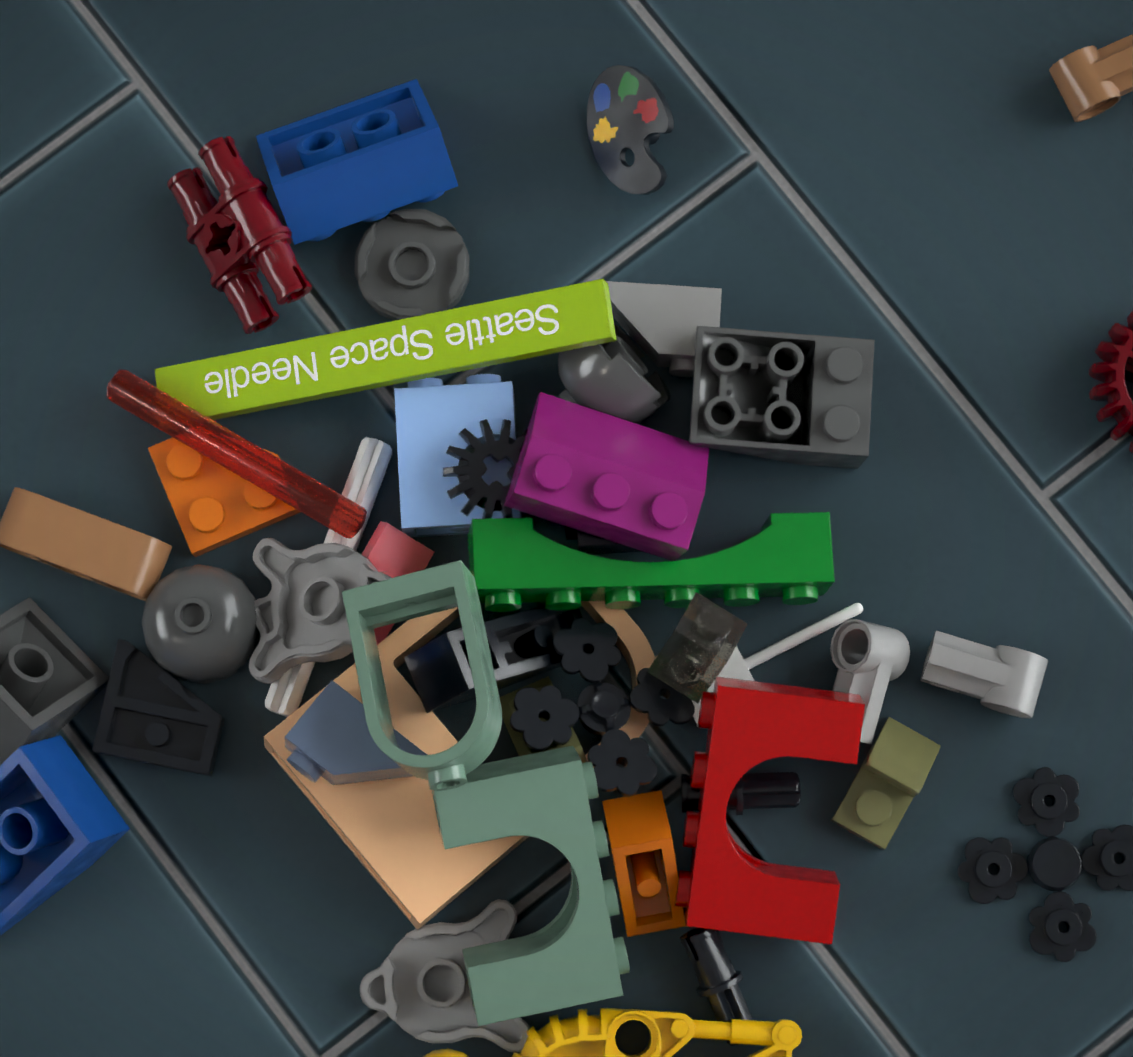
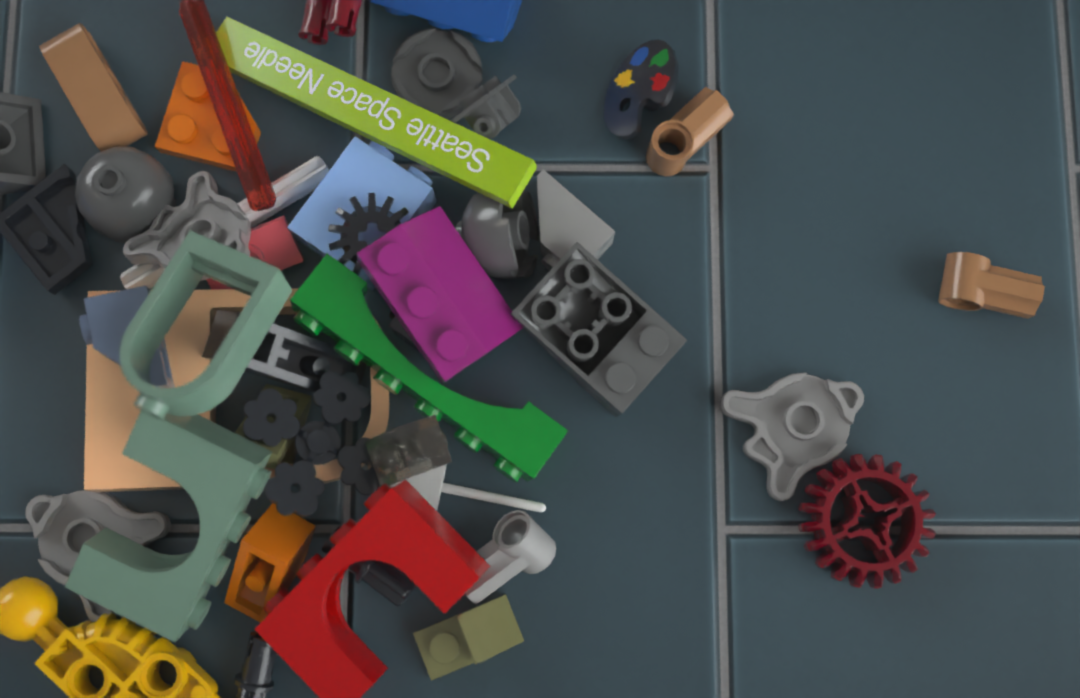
camera: 35 degrees right, 0 degrees up
(502, 259) = (490, 107): none -> dark grey hinge
(709, 136) = (688, 131): none -> medium nougat piece
(1001, 676) = (594, 625): light grey piece -> none
(1036, 344) = (796, 425): none -> light grey tile

